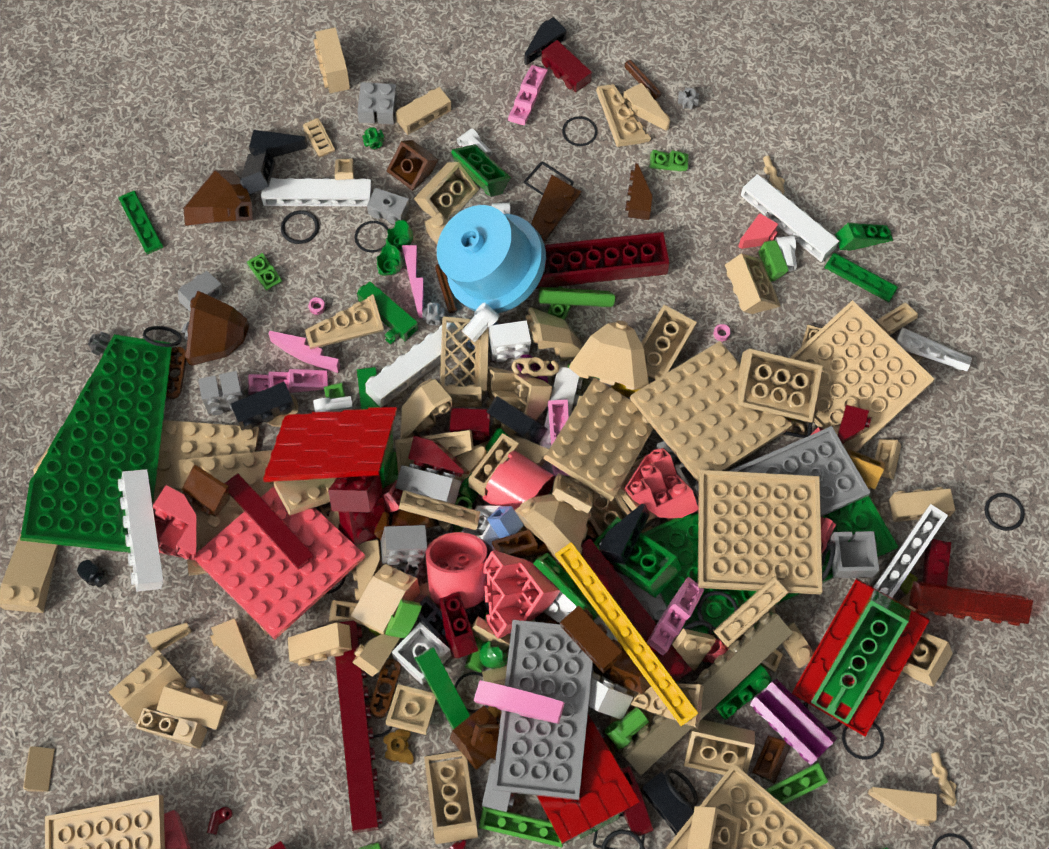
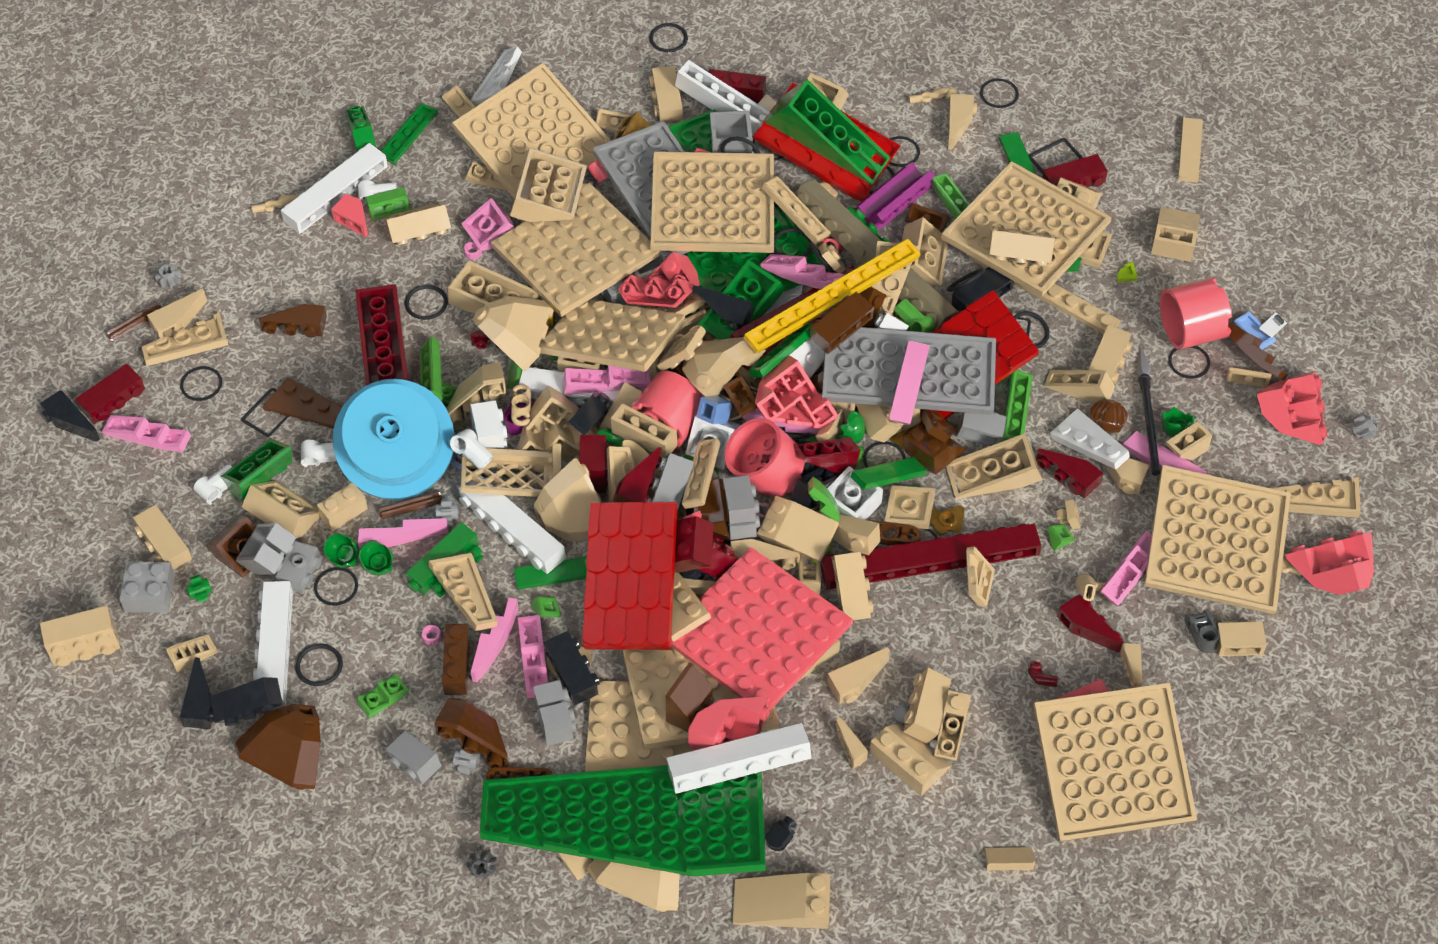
camera: 90 degrees left, 10 degrees down
(140, 222) = (303, 845): green tile -> none
(162, 344) = (482, 800): black piece -> none
(268, 522) = (722, 633): dark red tile -> none
(286, 321) = (456, 659): none -> reddish brown brick
(324, 767) = (979, 576): none -> tan wing
(333, 405) = (567, 609): white piece -> none
(344, 169) = (243, 615): tan tile -> none
(398, 178) = (266, 549): none -> light grey piece
(667, 282) = (426, 287): none -> black tyre
(674, 161) = (250, 297): bright green slope -> none
(744, 337) = (488, 224): none -> bright pink slope
(853, 423) = (585, 134): dark red slope -> none
(971, 603) = (770, 57): clear red brick -> none

